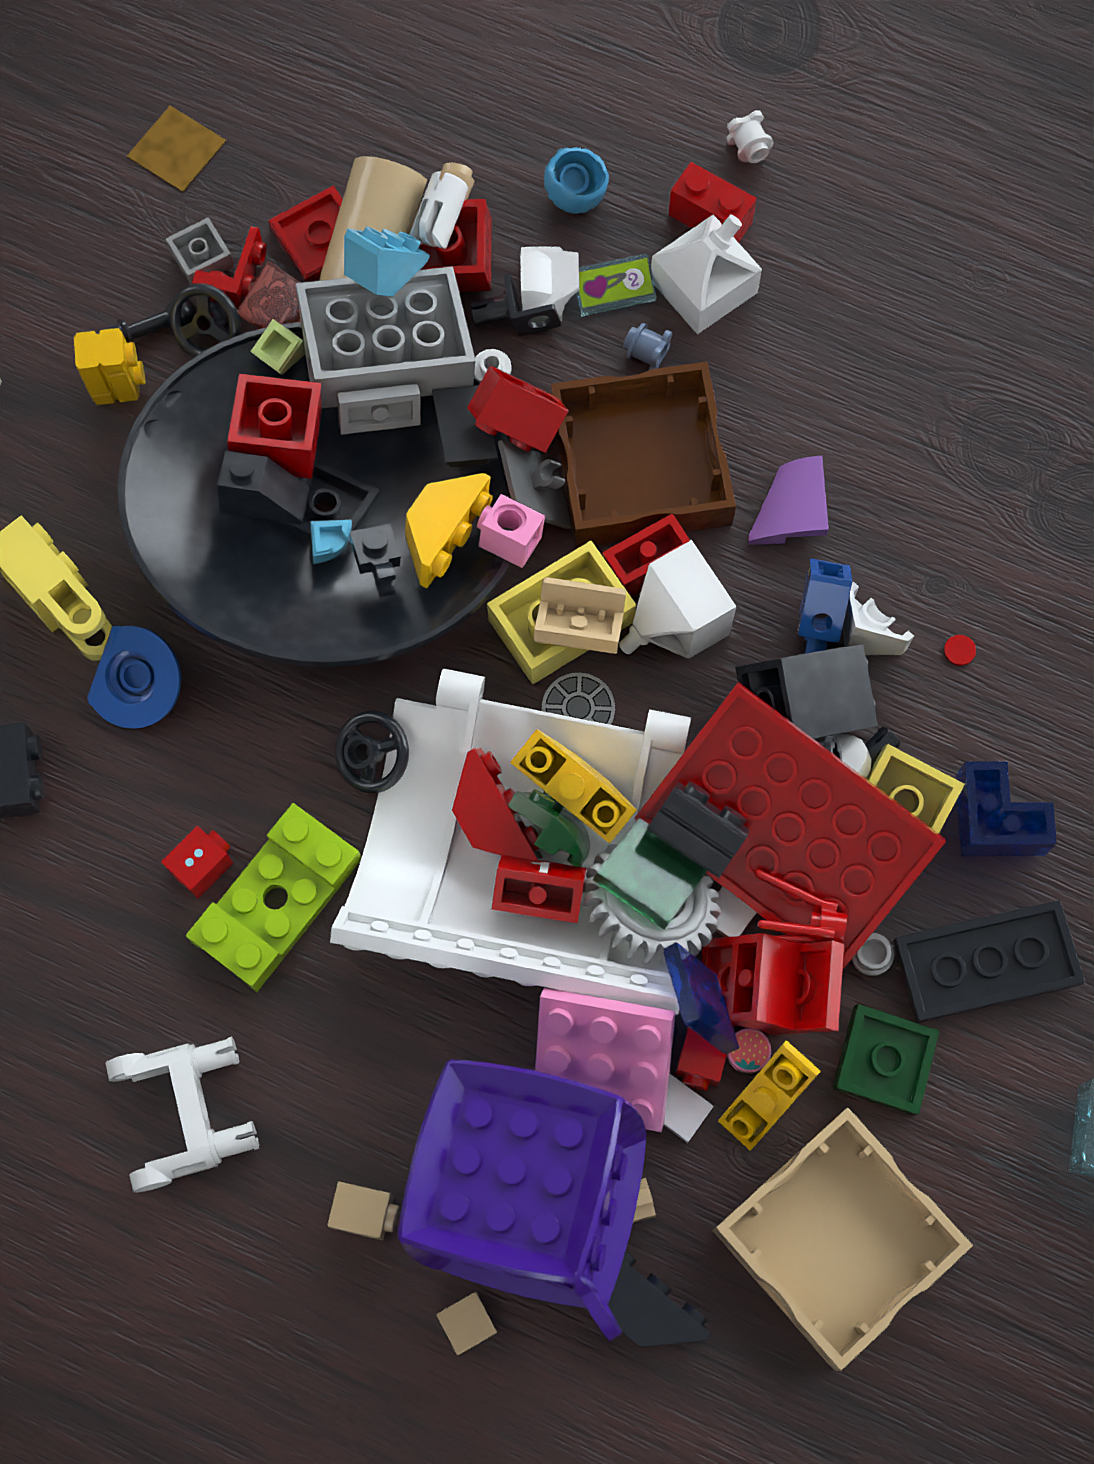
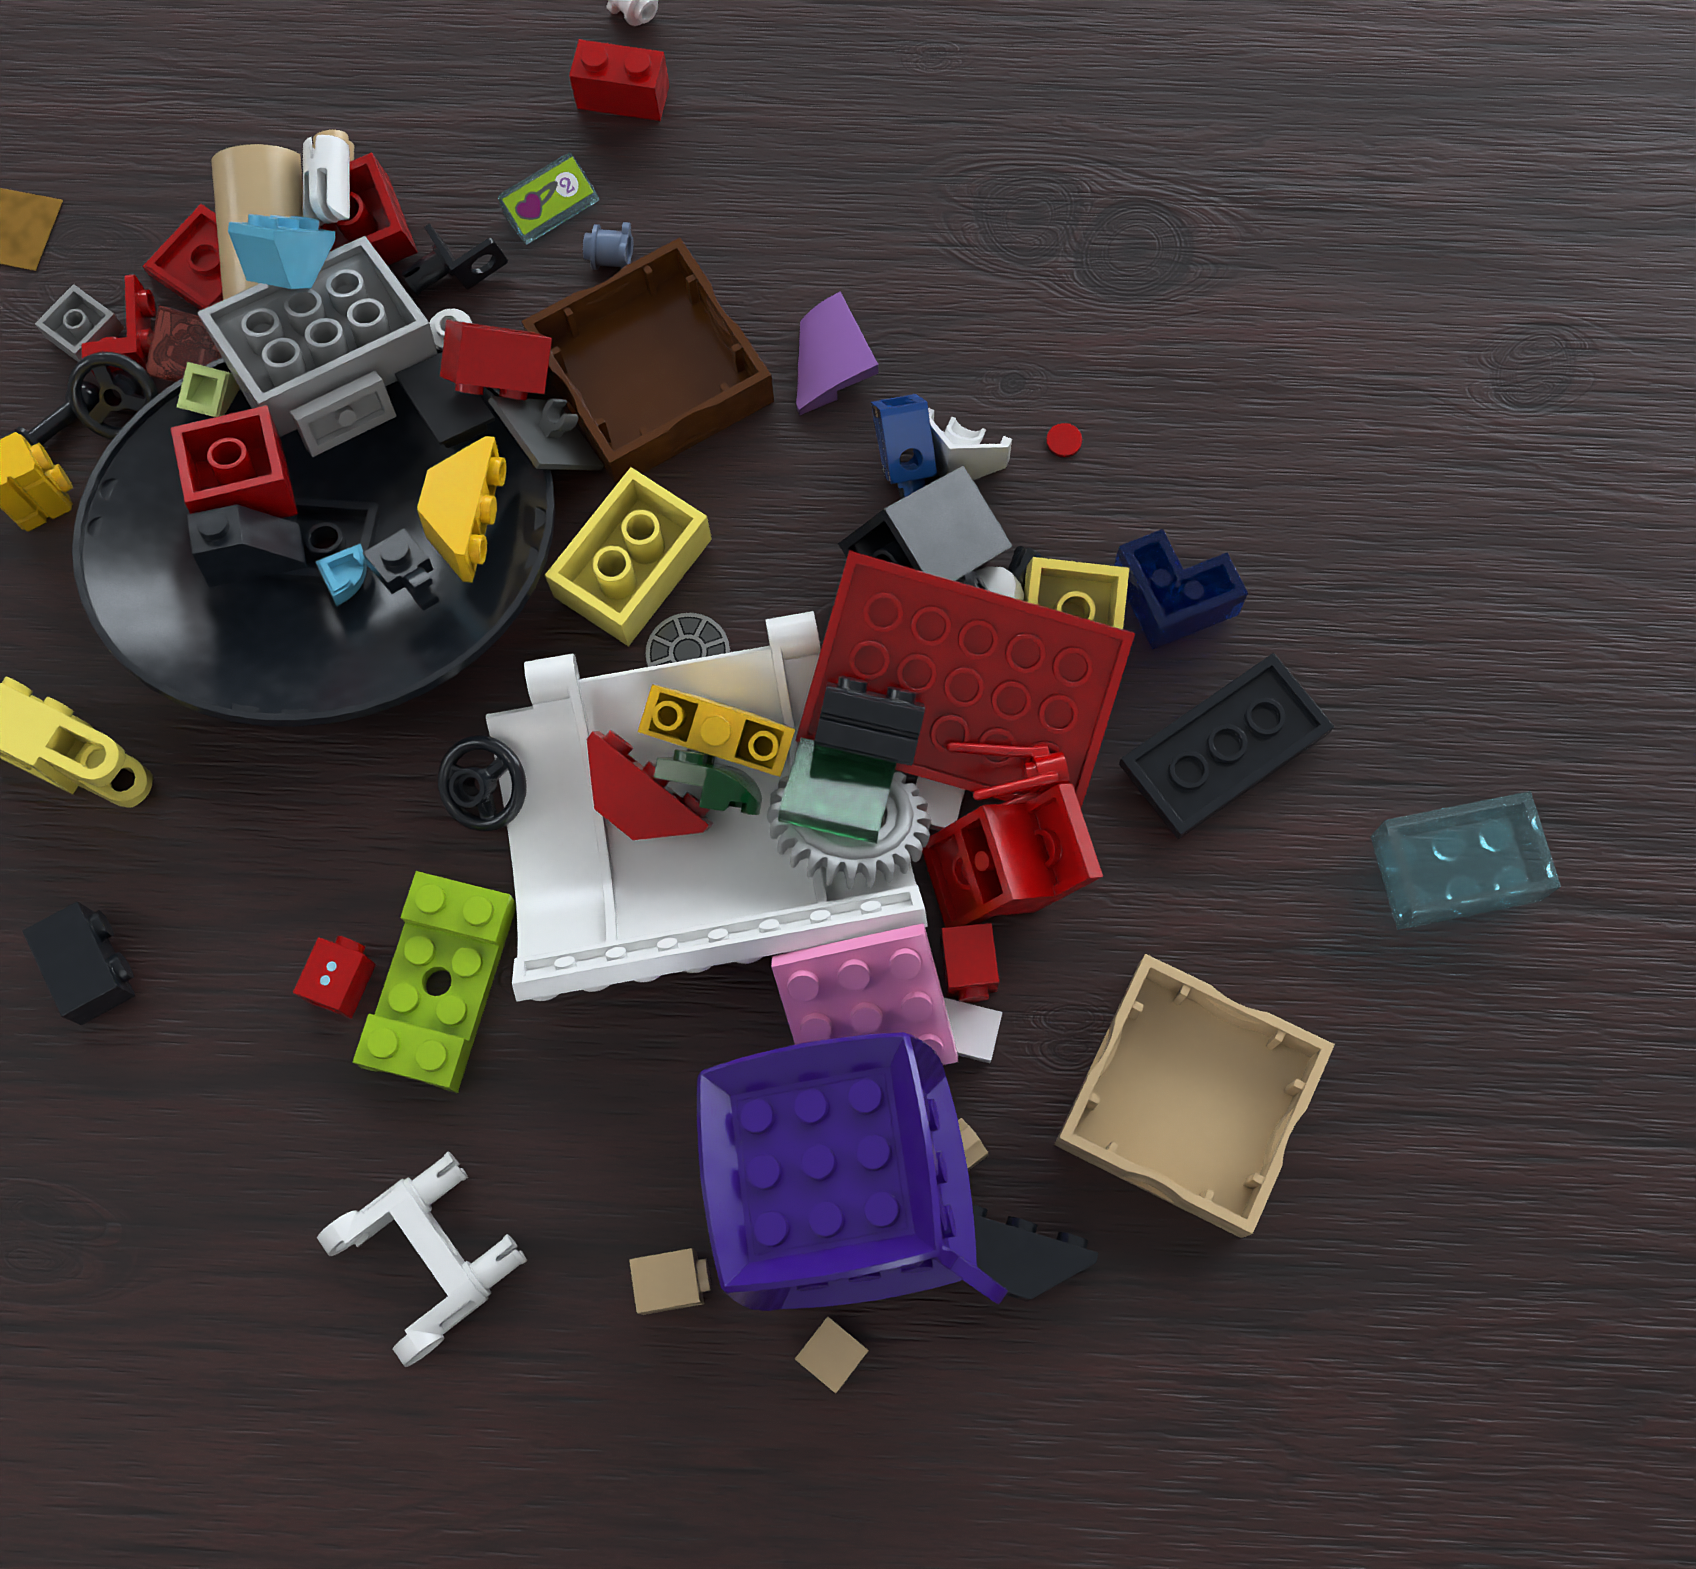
camera: 20 degrees left, 0 degrees up
(135, 678) = (186, 805): blue hat -> none
(510, 545) = (539, 486): bright pink brick -> none
(538, 888) = (723, 854): red brick -> none
(548, 278) = (473, 215): white slope -> none
(576, 180) = (463, 103): dark azure hair -> none
(580, 615) = (650, 546): tan bracket -> none
(632, 556) = (701, 460): red brick -> none
(681, 605) = (755, 499): white piece -> none
(700, 998) = (944, 900): clear blue tile -> none
(706, 272) = (641, 149): white piece -> none
(752, 1053) = (1016, 939): coral tile -> none
(768, 1095) = (1057, 975): yellow slope -> none
(874, 956) = (1106, 787): light grey plate -> none
(886, 1059) = (1162, 890): dark green plate -> none

